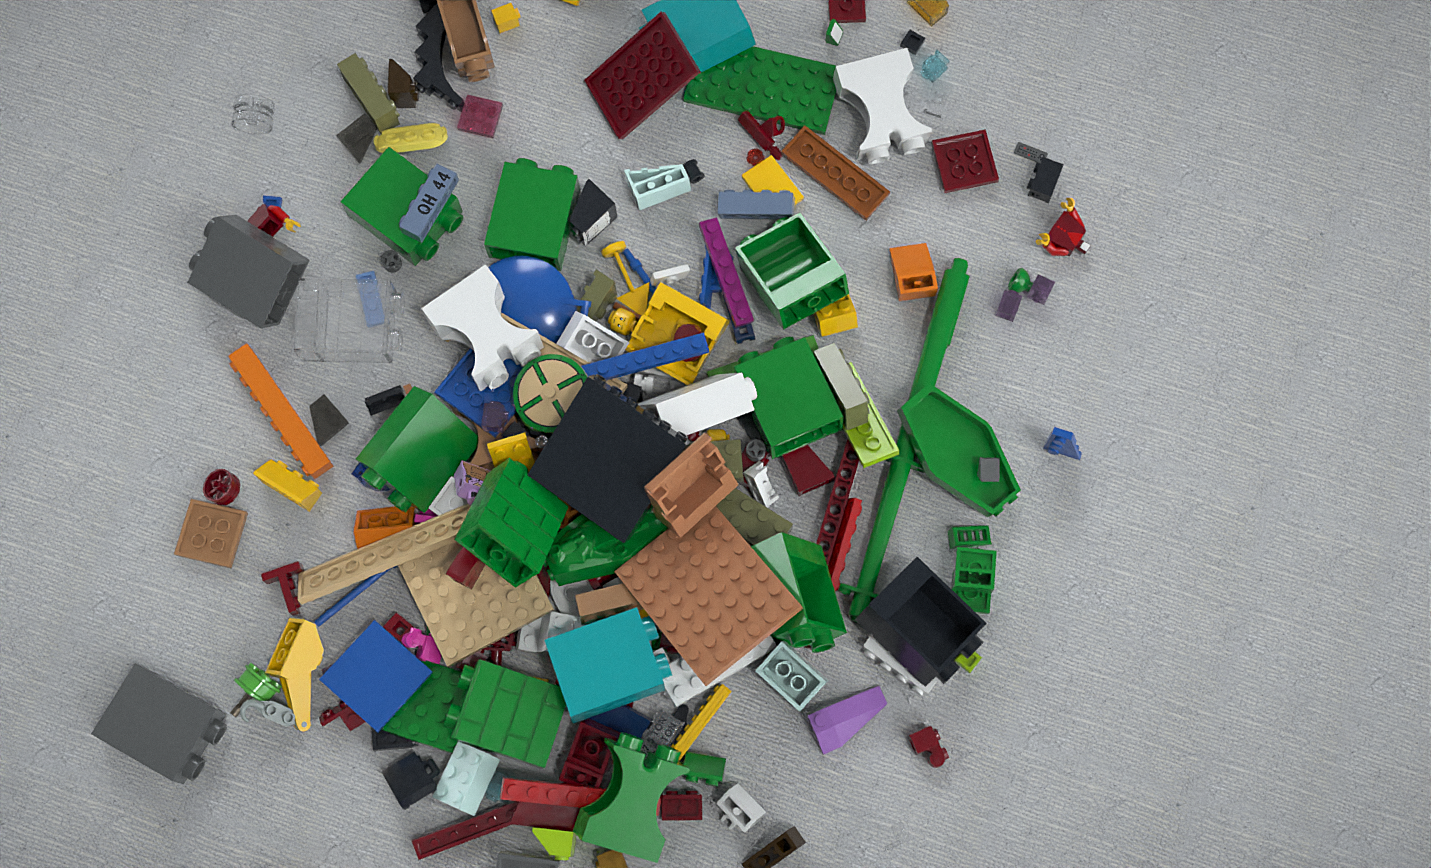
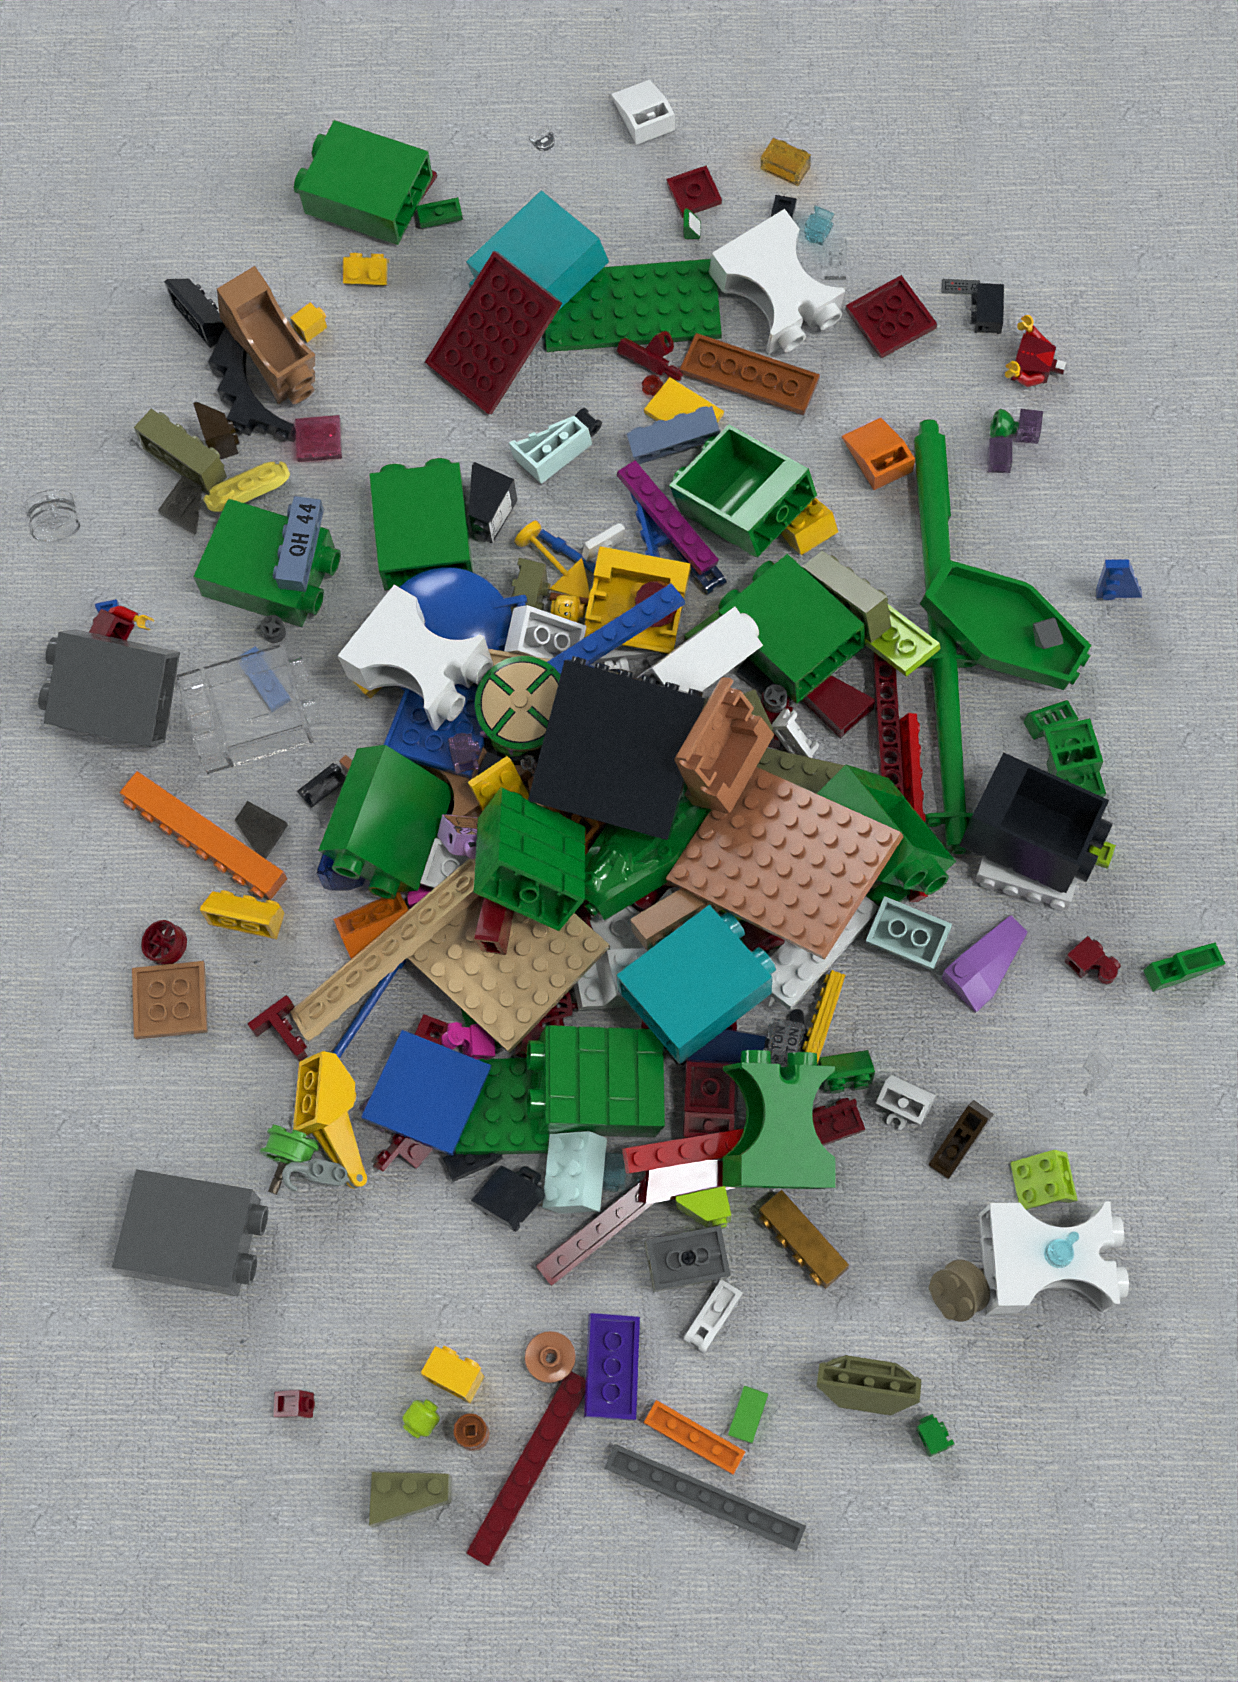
camera: 15 degrees left, 5 degrees down
(999, 774) = (1183, 966): none -> green slope

